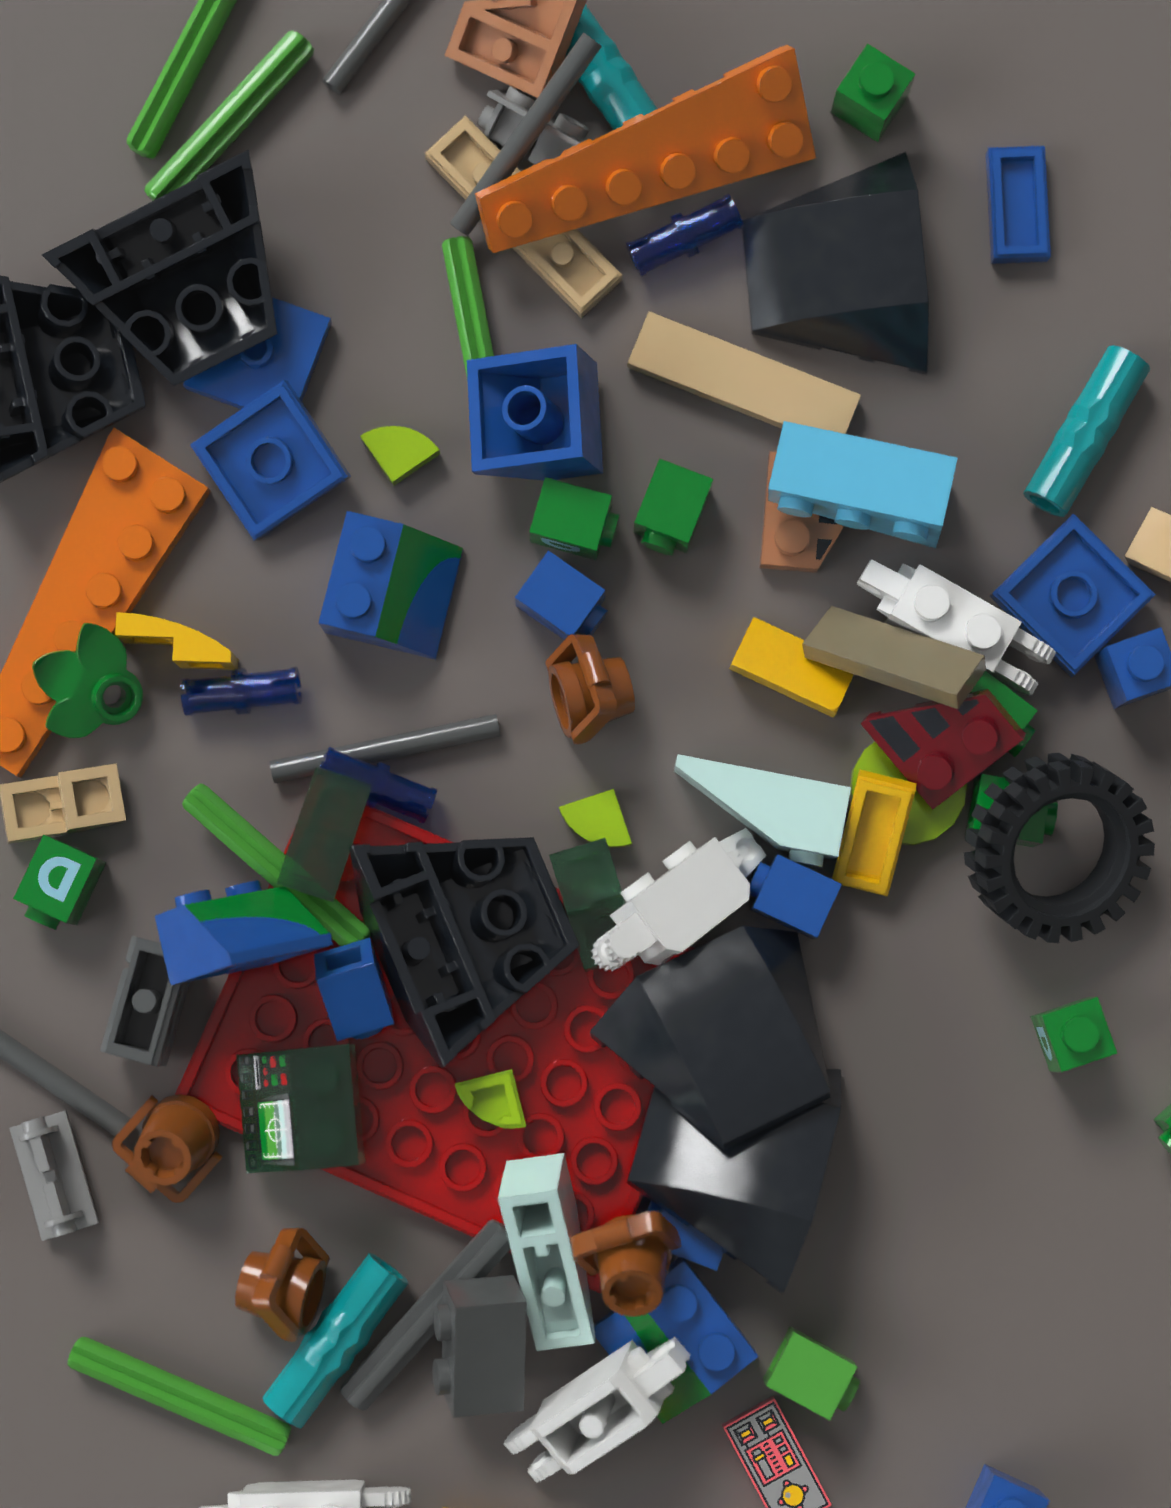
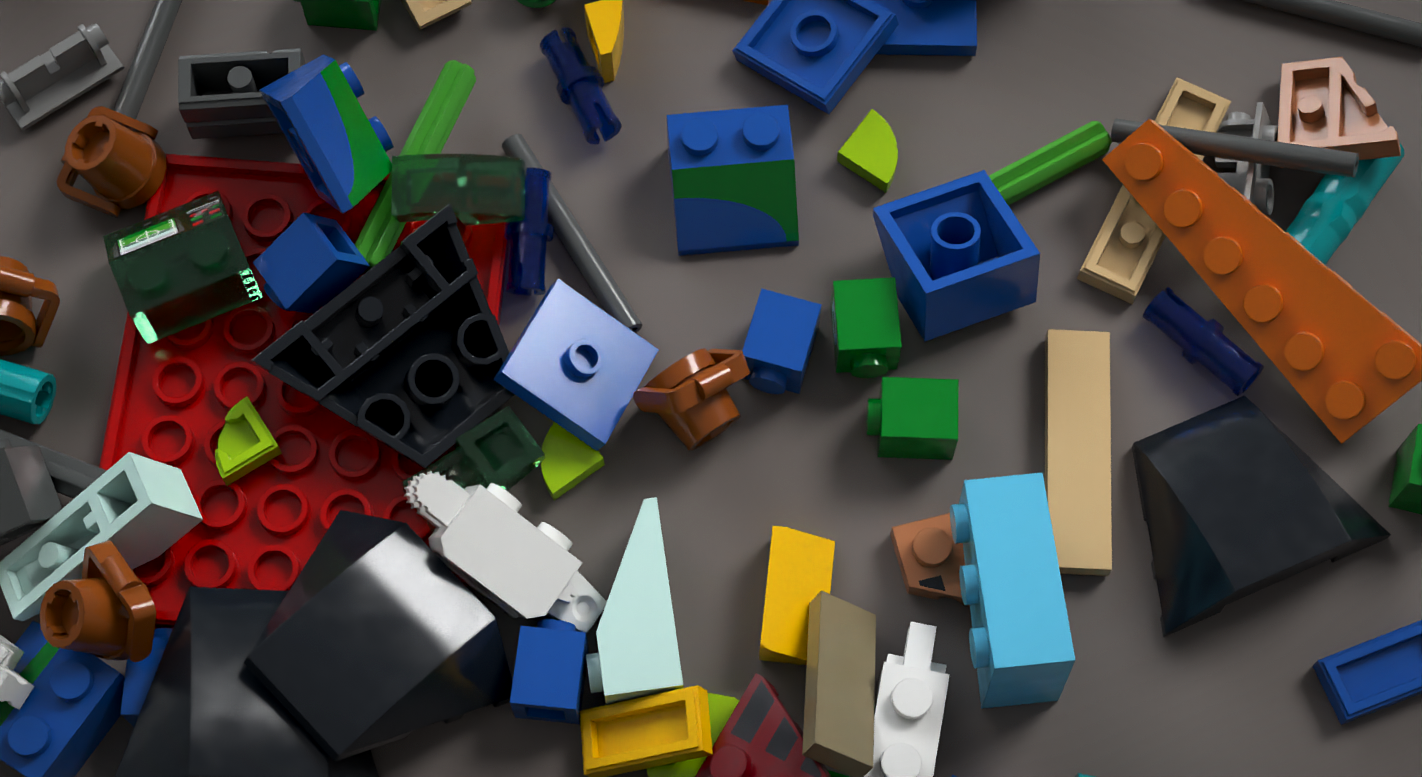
camera: 70 degrees right, 15 degrees down
(525, 783) = (576, 365): none -> plate

